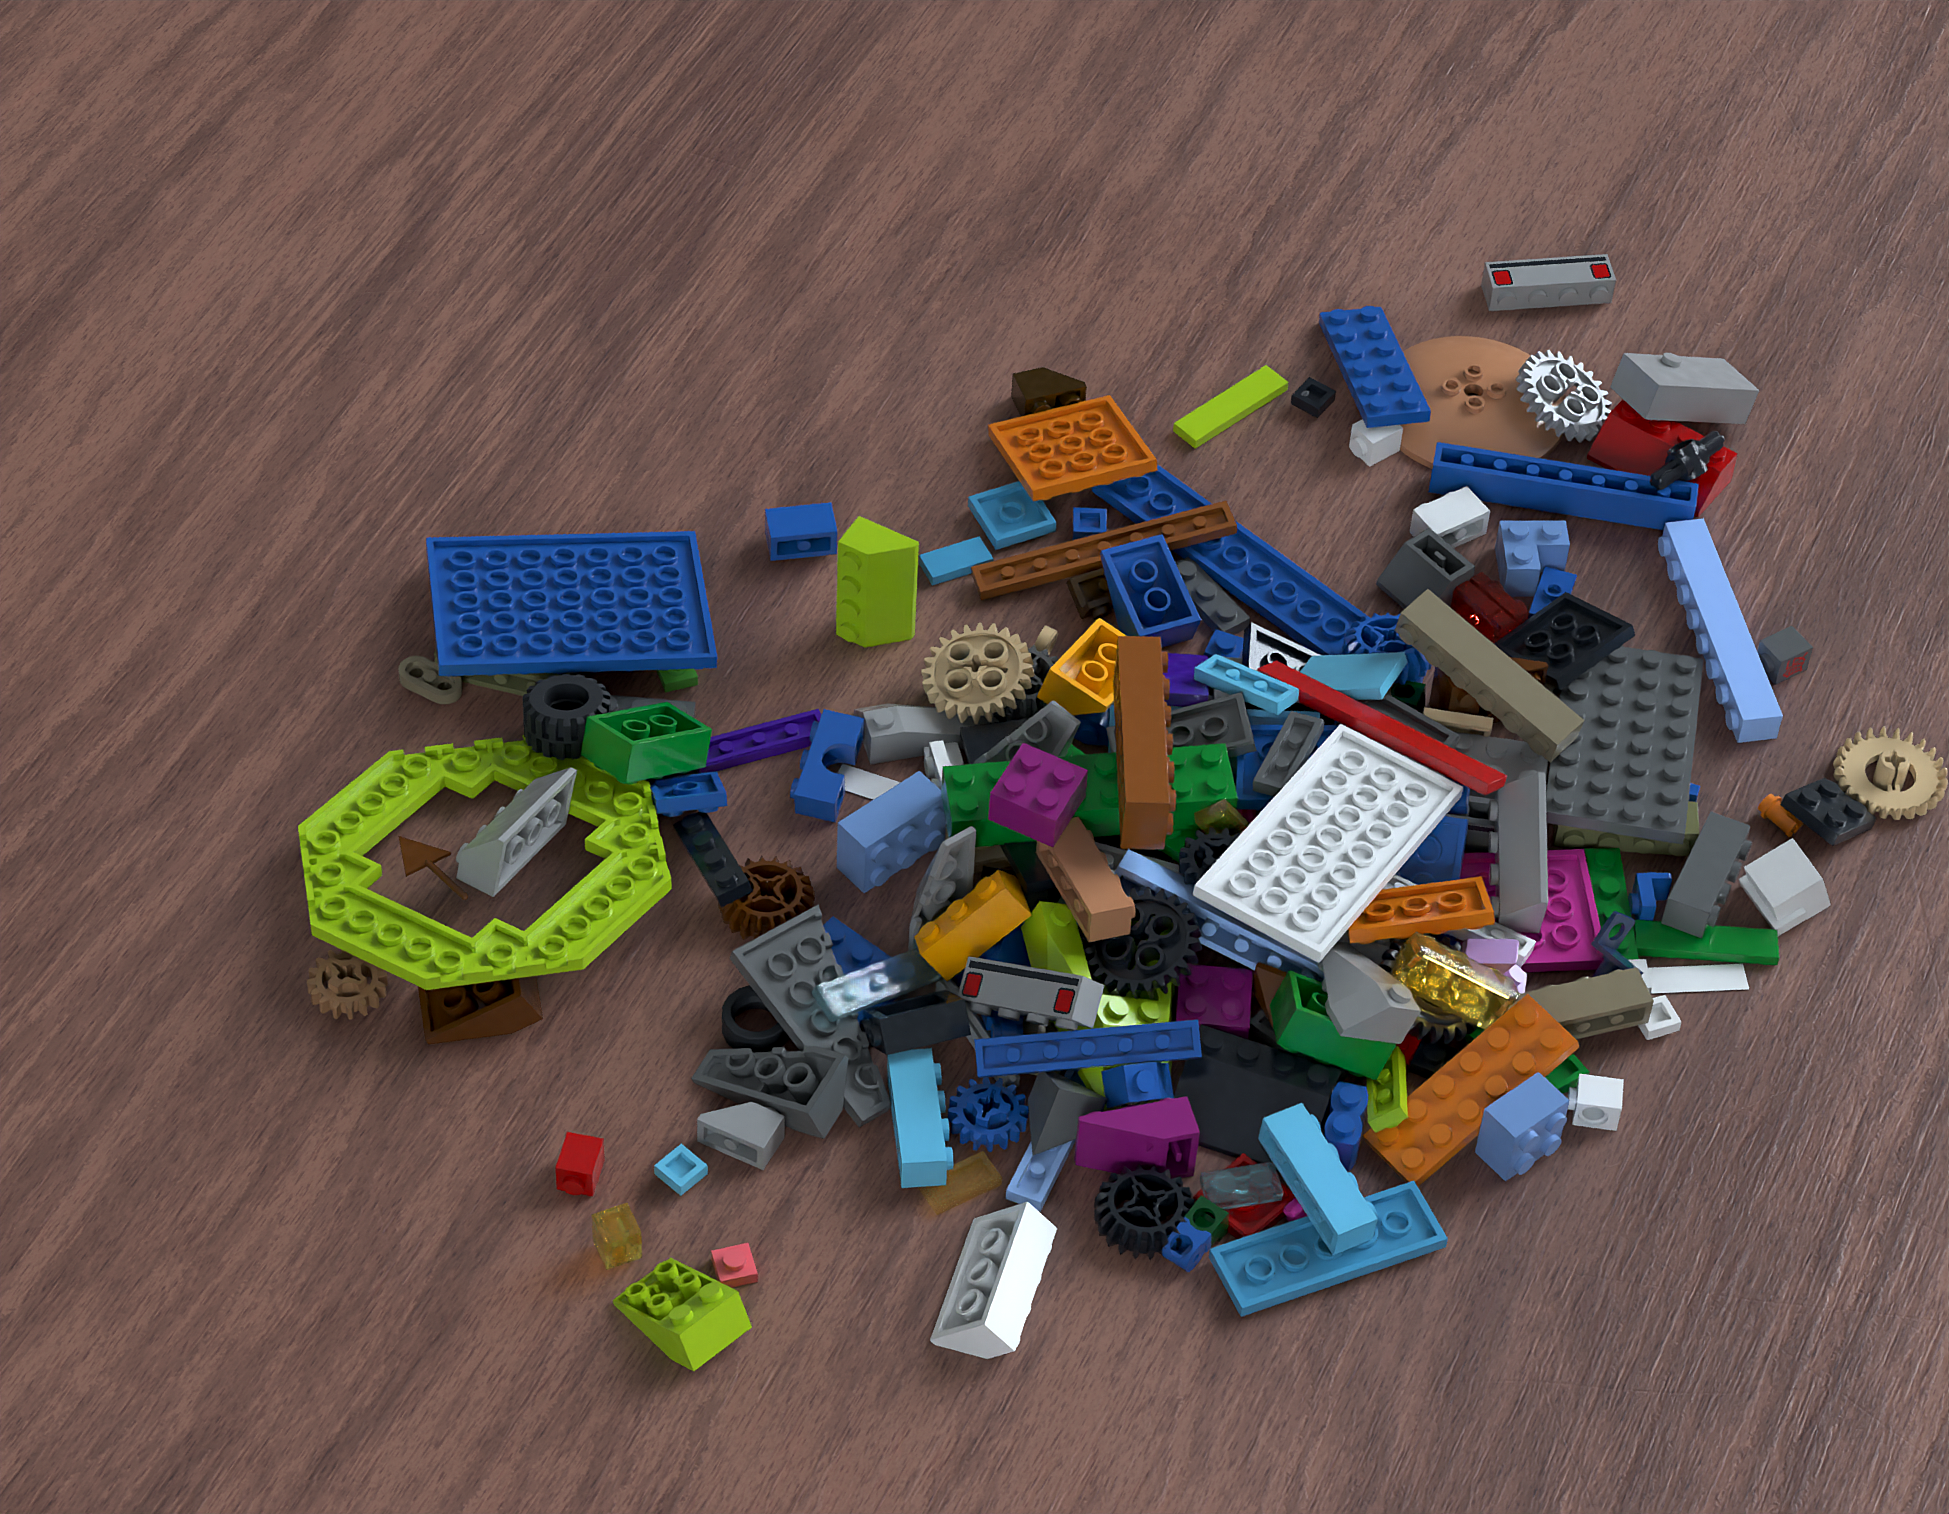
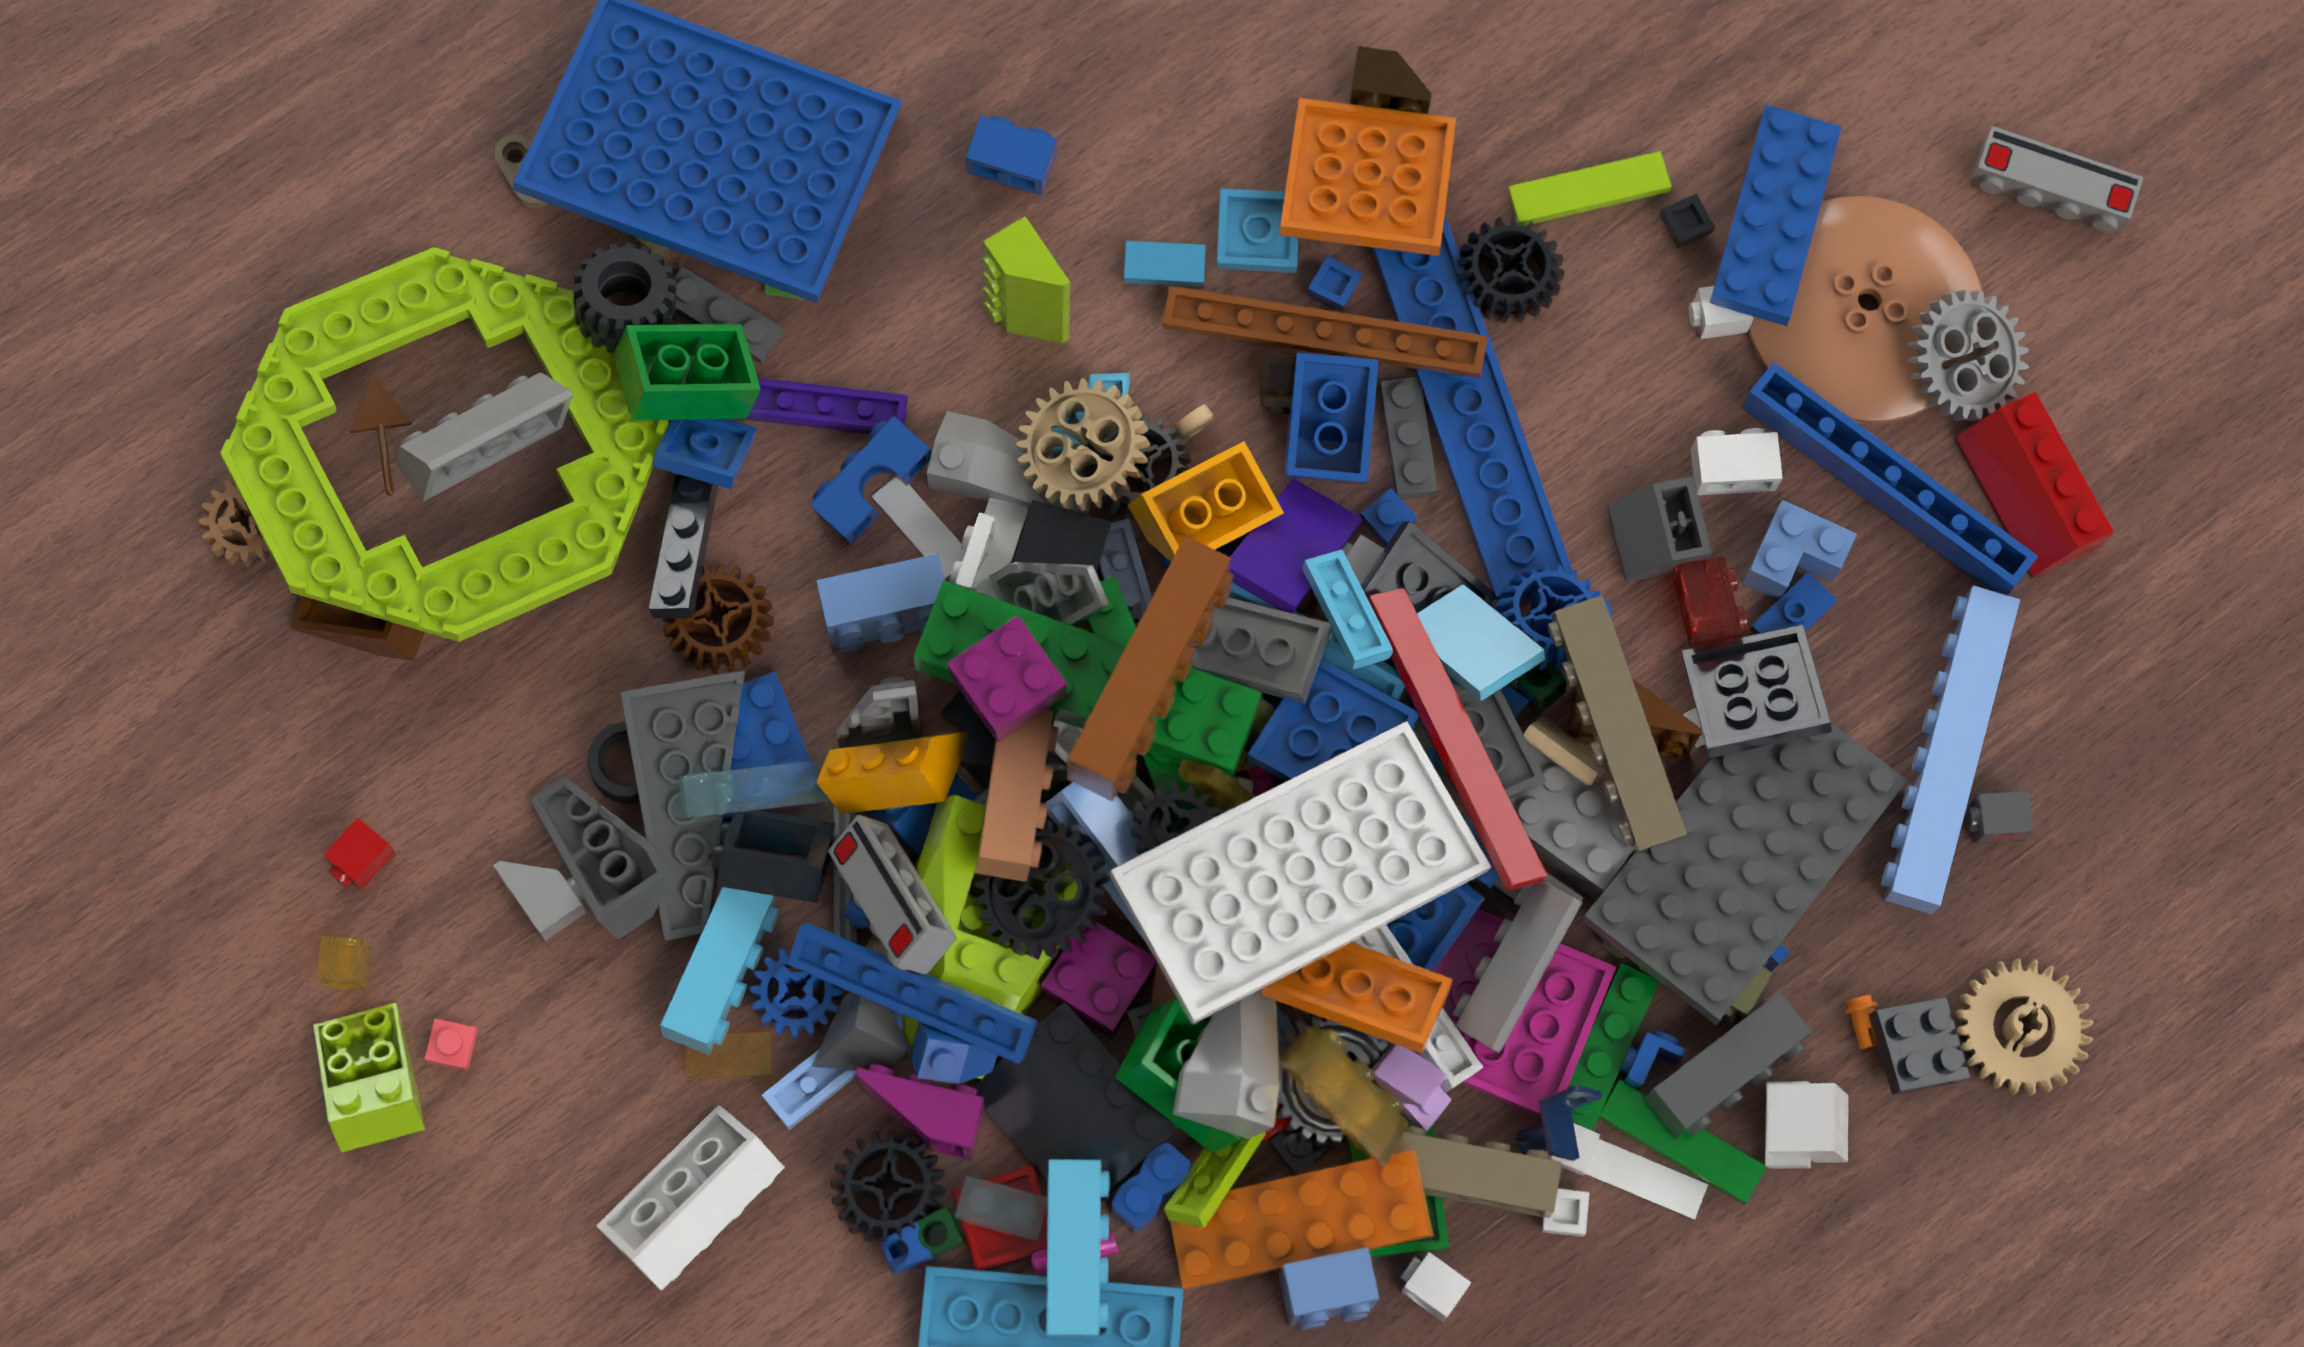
camera: 25 degrees right, 25 degrees up
(681, 1169) = (456, 907): medium azure plate -> none
(1211, 467) = (1530, 292): none -> black gear
(1288, 752) = (1331, 729): dark grey plate -> none
(1684, 388) = (2105, 417): light grey brick -> none
(1687, 460) = (2041, 522): black axle -> none

